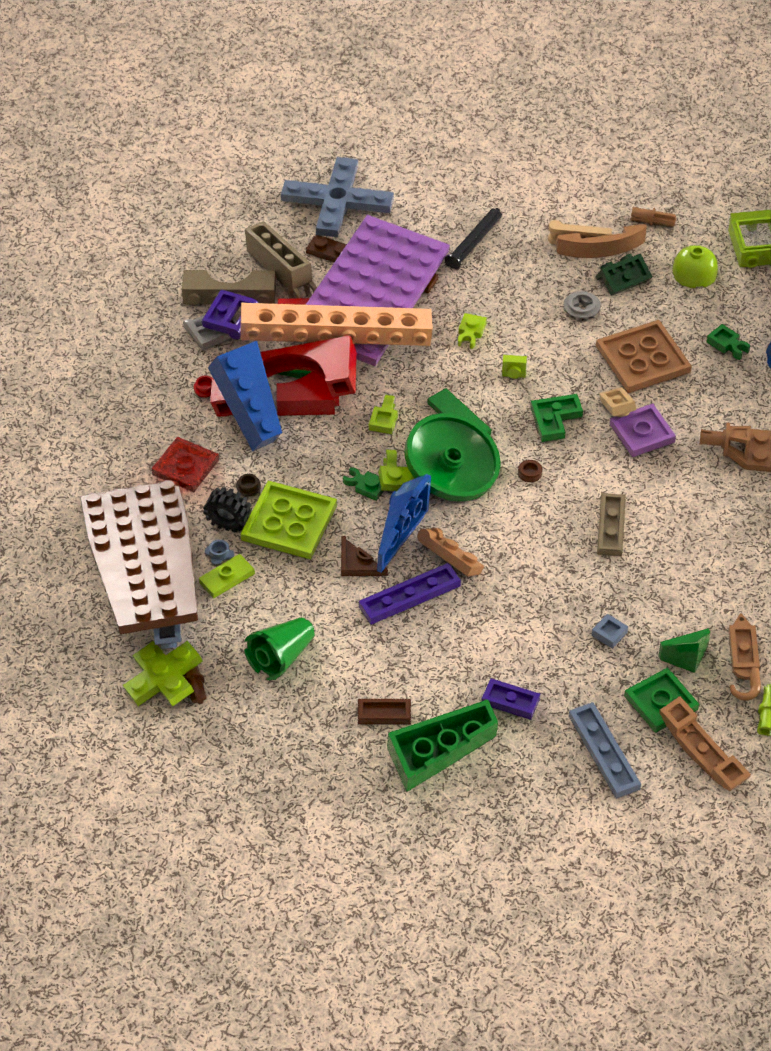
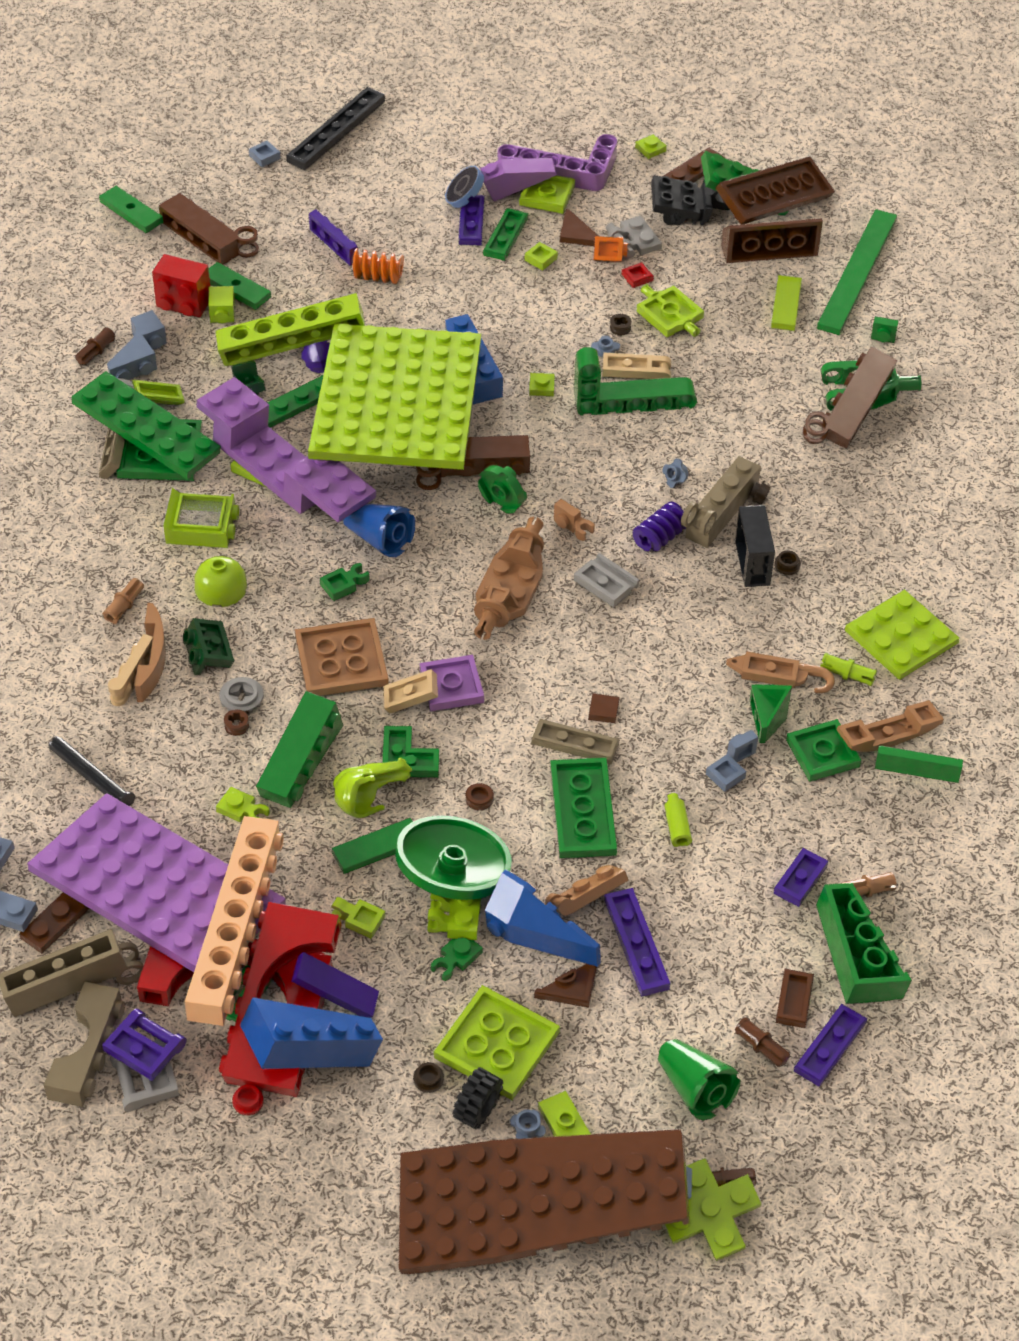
camera: 80 degrees left, 0 degrees up
(185, 464) = (376, 1140): clear red plate -> none
(306, 407) = (335, 985): none -> dark purple tile
(331, 691) = (762, 1042): none -> reddish brown axle
(343, 742) = (830, 1045): none -> dark purple tile
(507, 389) = (358, 785): none -> lime piece
(514, 366) = (322, 775): lime plate -> none
(516, 749) = (874, 884): none -> medium nougat axle
(538, 537) = (583, 808): none -> green plate
(545, 344) = (300, 749): none -> green wedge
(545, 604) = (677, 821): none -> lime cylinder
(553, 314) = (236, 730): none -> reddish brown bush
(604, 750) = (879, 811): sand blue plate -> none
(641, 637) = (742, 745): none -> sand blue plate
(655, 537) = (603, 708): none -> reddish brown tile
(668, 773) = (918, 764): none -> green tile

